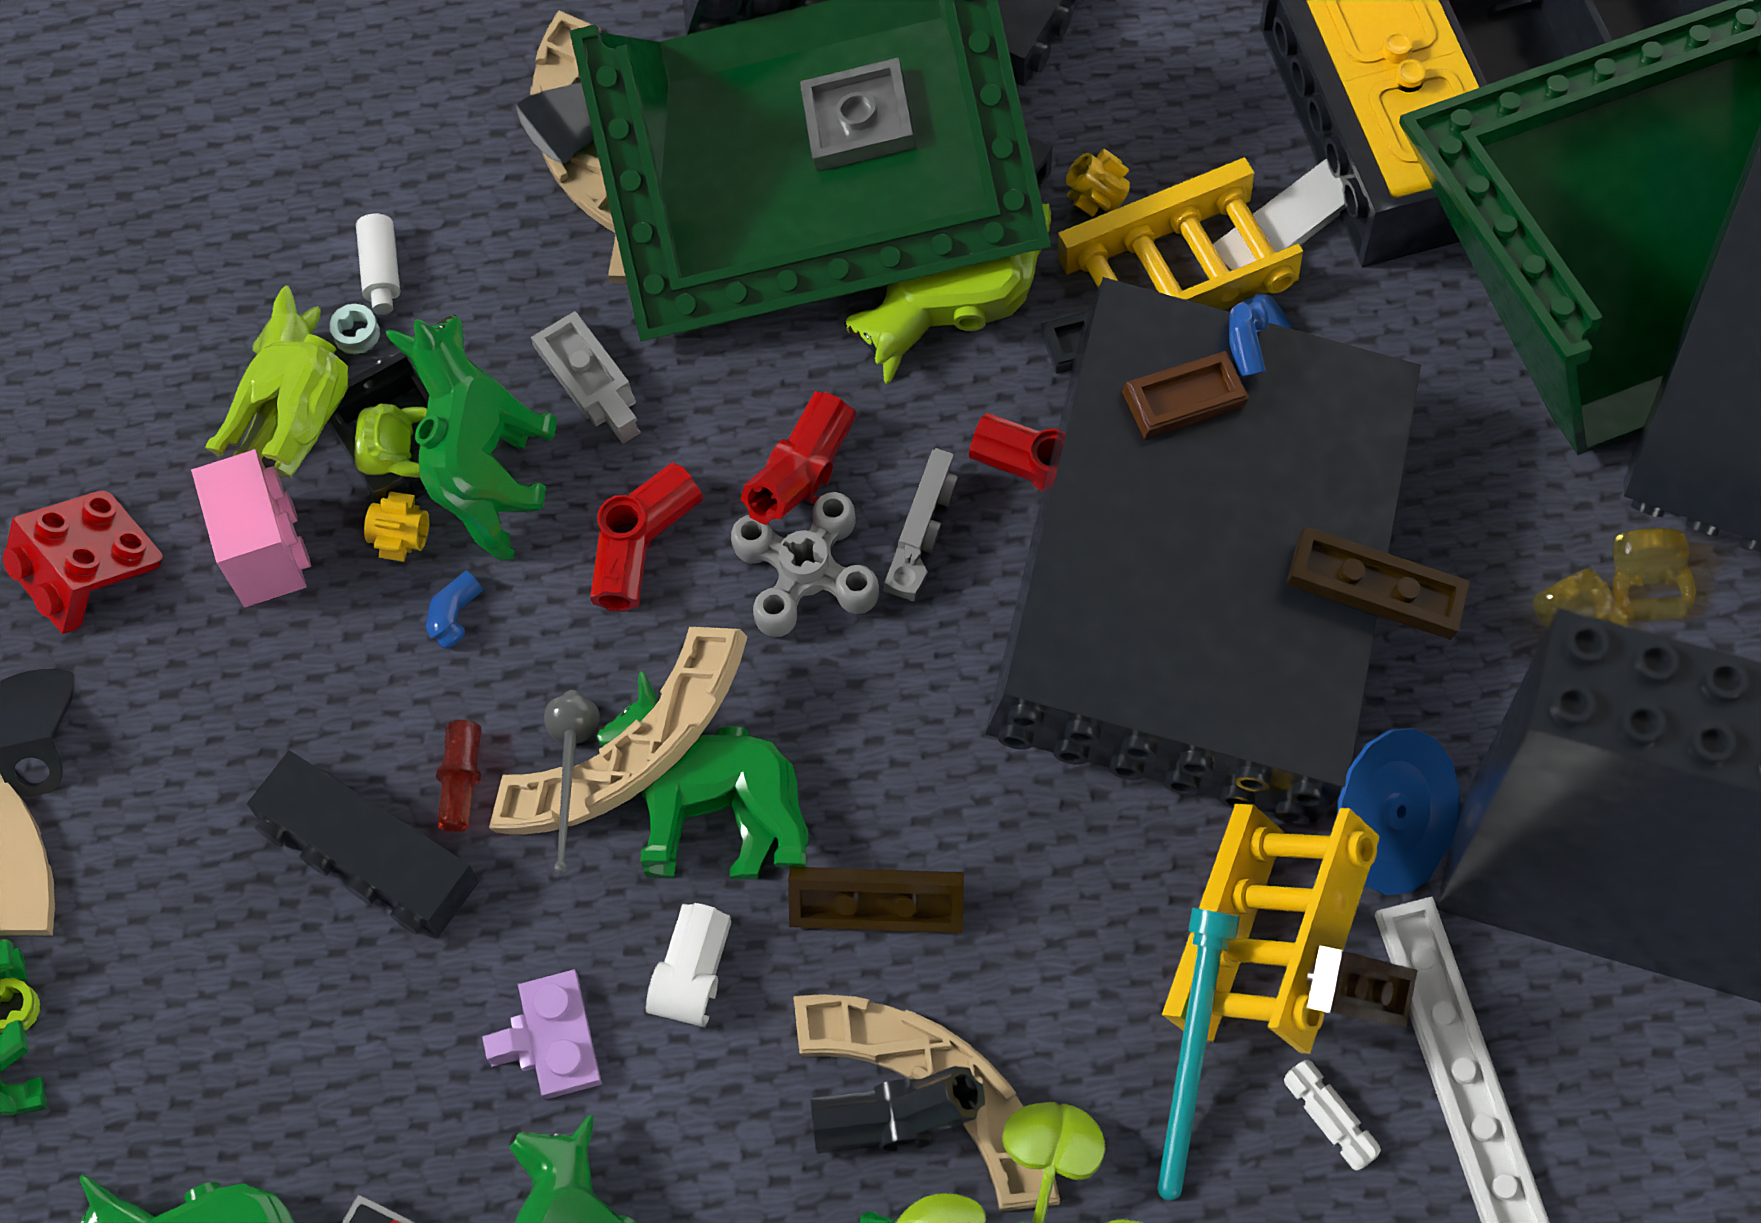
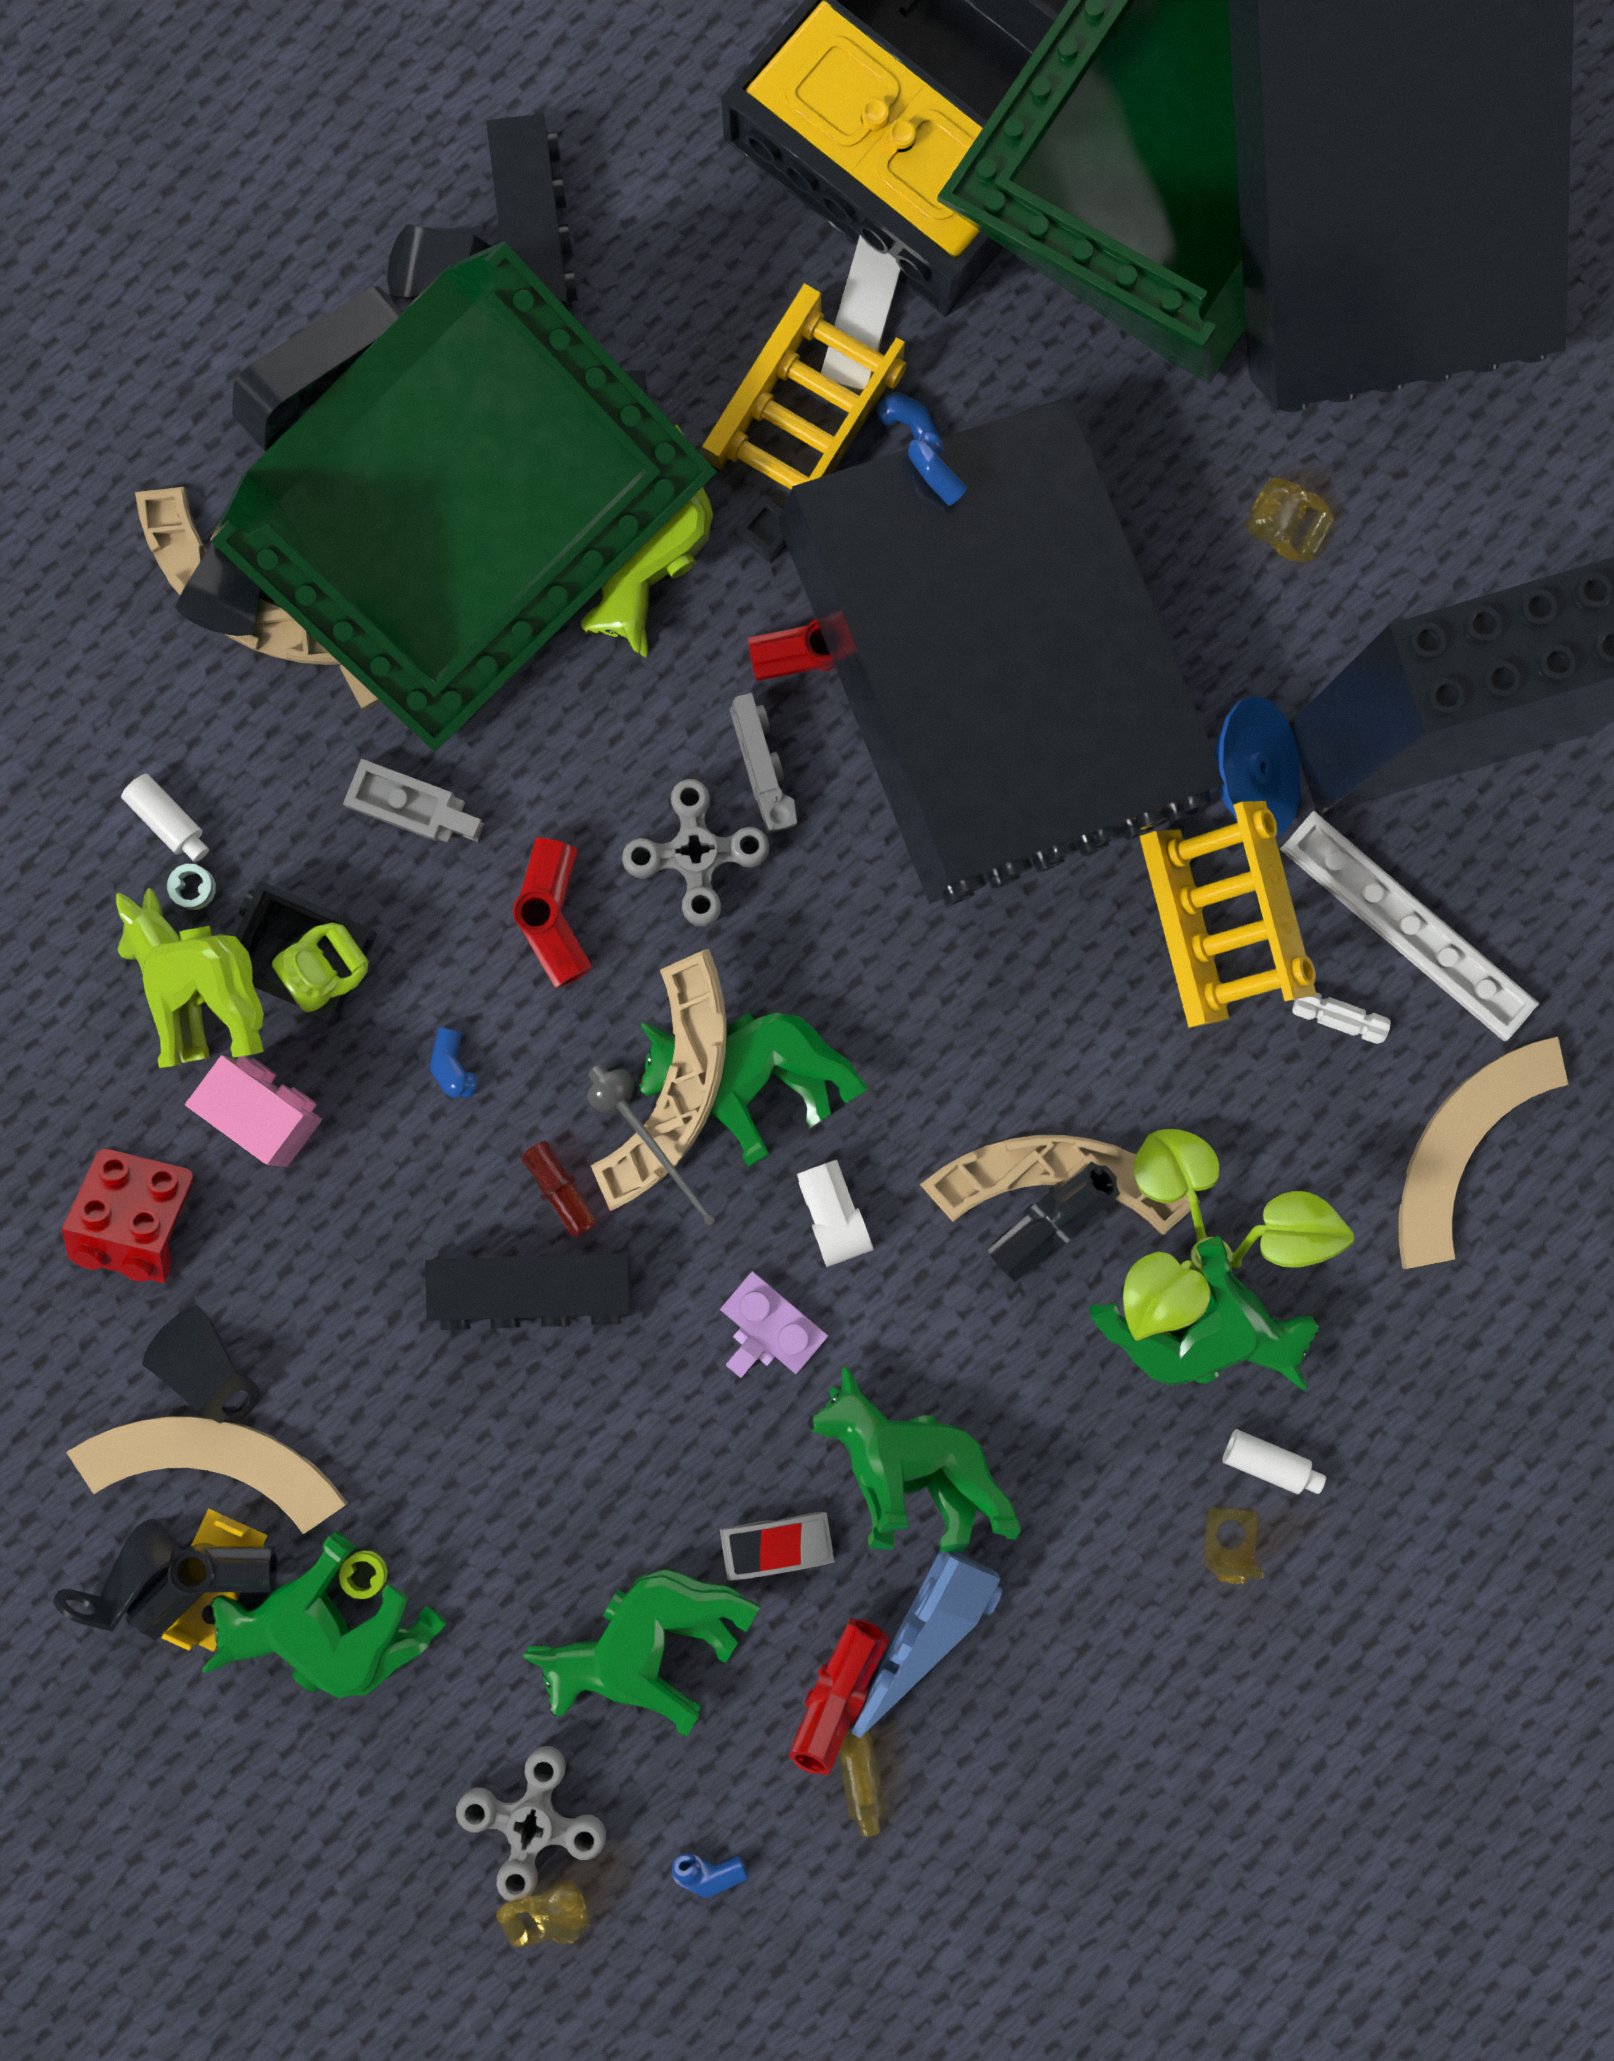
camera: 45 degrees left, 20 degrees up
(396, 526) = (361, 1029): yellow gear -> none
(462, 429) = (368, 928): green animal -> none
(802, 461) = (634, 774): red piece -> none
(857, 114) = (469, 441): flat silver tile -> none
(876, 899) = (931, 1076): dark brown plate -> none
(1097, 182) = (697, 376): yellow gear -> none
(1185, 394) = (920, 547): reddish brown tile -> none
(1212, 935) = (1195, 952): teal piece -> none
(1361, 987) = (1321, 924): dark brown plate -> none
(1378, 583) = (1154, 609): dark brown plate -> none
(1652, 558) = (1312, 439): clear yellow piece -> none

